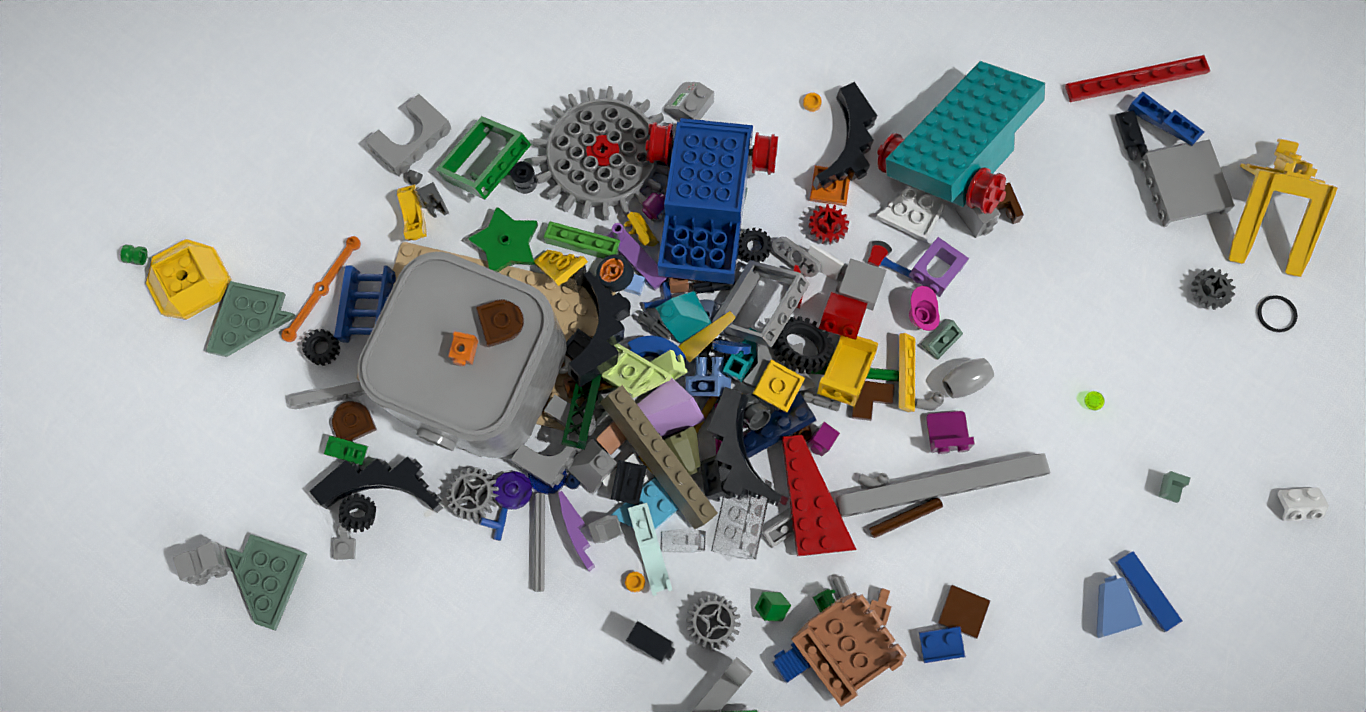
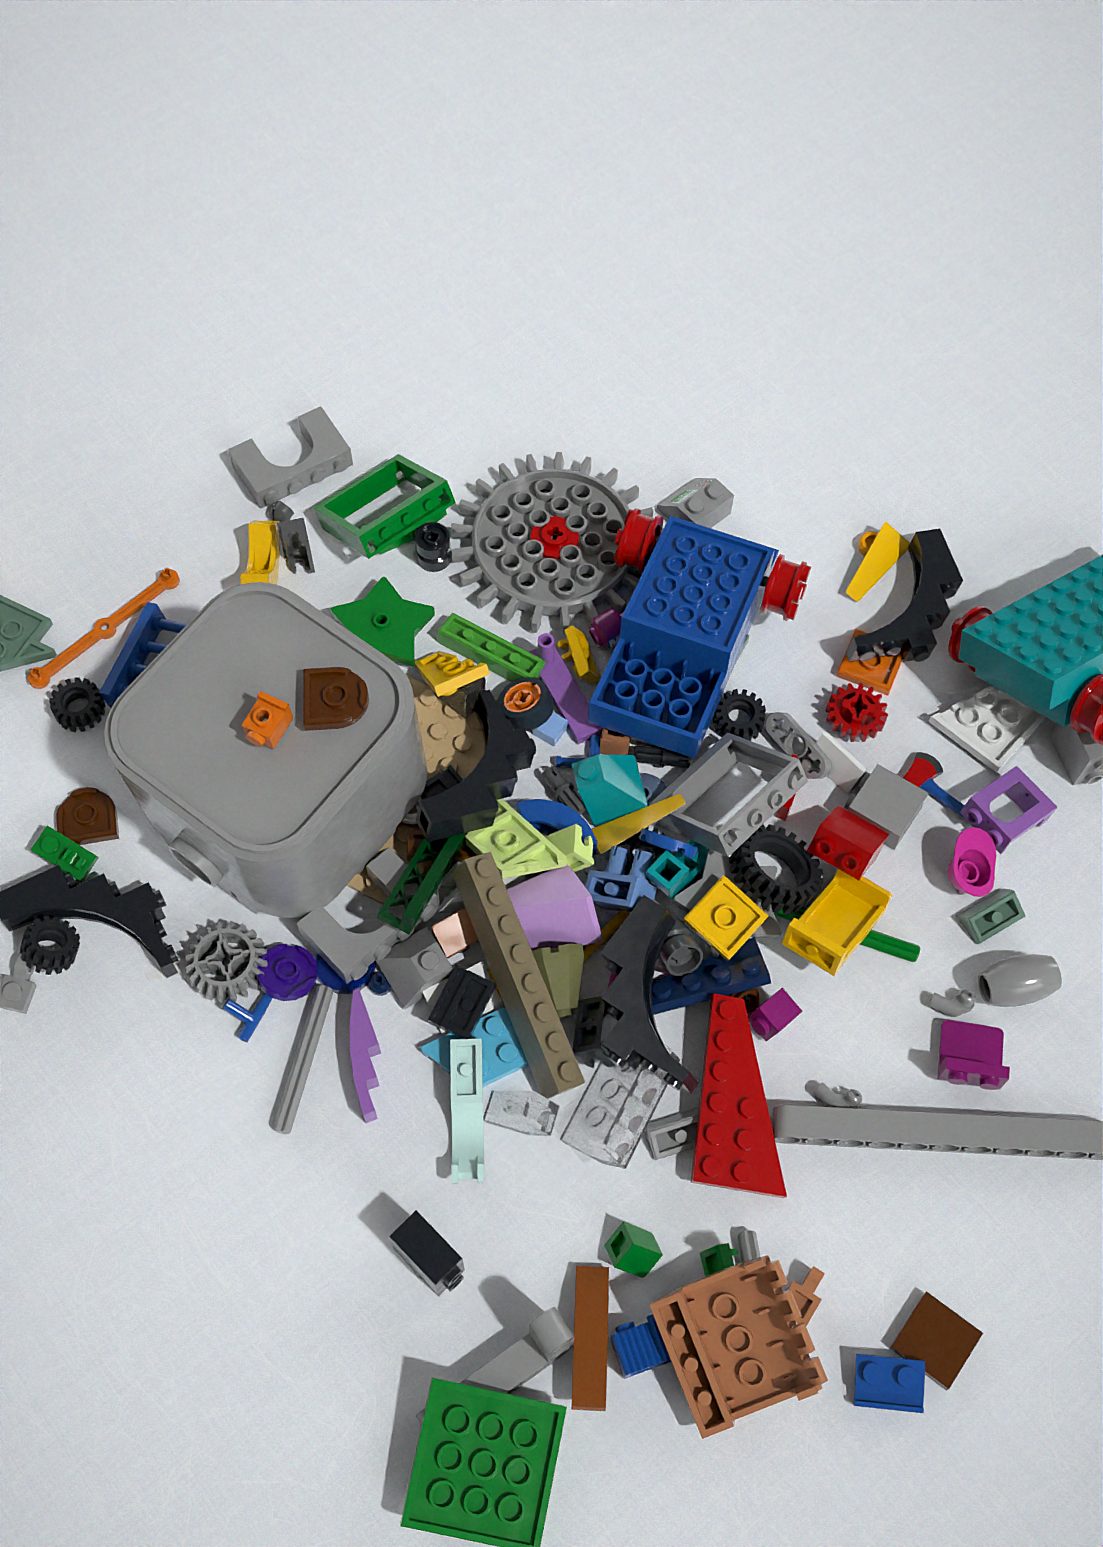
camera: 10 degrees right, 10 degrees down
(326, 395) = (62, 771): light grey beam -> none
(605, 529) = (408, 1063): light grey panel -> none
(634, 582) = (430, 1156): light orange tile -> none
(697, 615) = (545, 1258): light grey gear -> none
(760, 665) = (590, 1339): none -> dark orange slope
(821, 107) = (881, 556): none -> yellow sticker
(821, 401) = (786, 960): light grey axle -> none
(871, 393) = (862, 968): reddish brown tile -> none
(905, 518) = (875, 1167): reddish brown axle -> none
(907, 372) = (926, 950): yellow tile -> none

